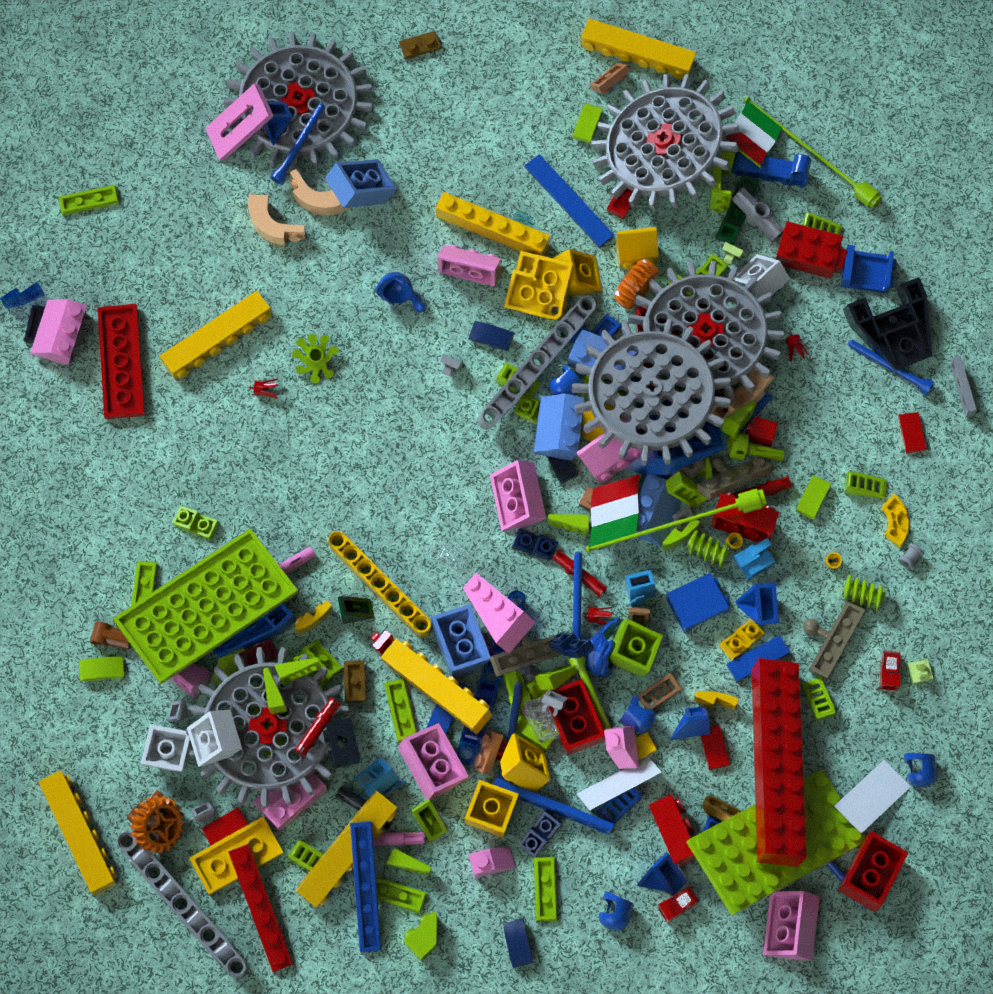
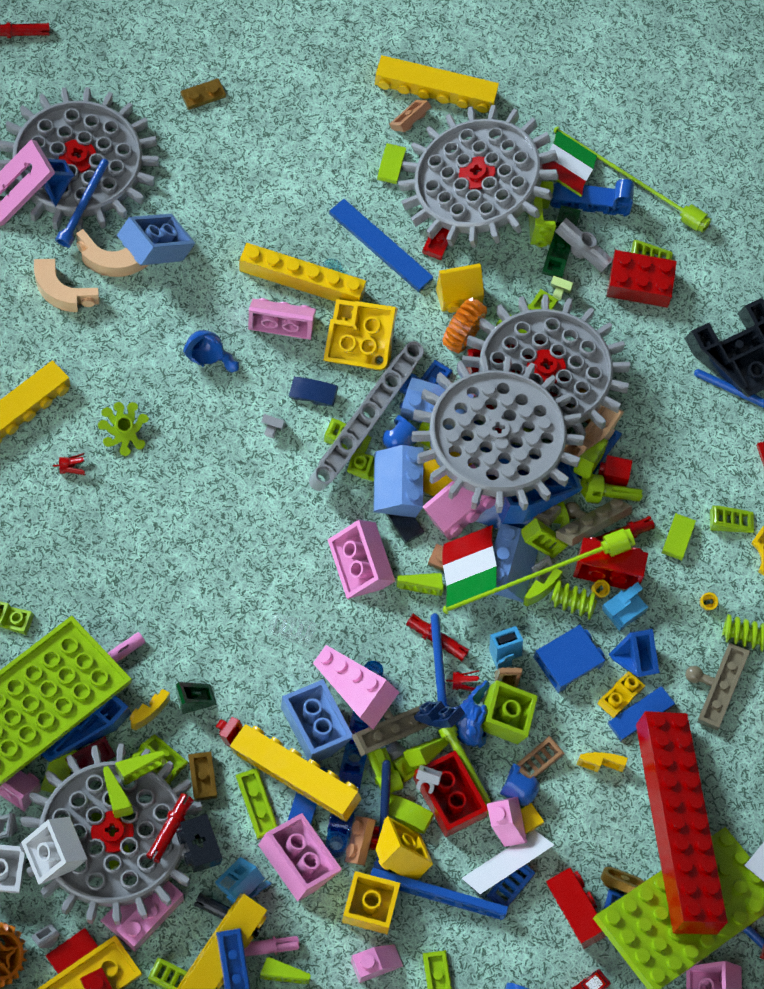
camera: 15 degrees left, 5 degrees down
(375, 576) = (216, 657): yellow beam -> none
(429, 820) = (302, 922): lime slope -> none
(534, 544) = (385, 611): dark blue slope -> none
(534, 708) = (404, 789): clear slope -> none
(540, 833) = (427, 926): dark blue slope -> none
(585, 273) = (408, 319): yellow slope -> none
(664, 876) = (569, 960): blue slope -> none
(693, 723) = (580, 789): blue slope -> none
(715, 748) = (605, 813): red tile -> none
(769, 275) = (604, 302): white slope -> none
(794, 341) = (639, 375): red piece -> none
(818, 716) = (704, 754): lime slope -> none
(840, 260) = (676, 287): red tile -> none
(868, 271) = (706, 296): blue panel -> none

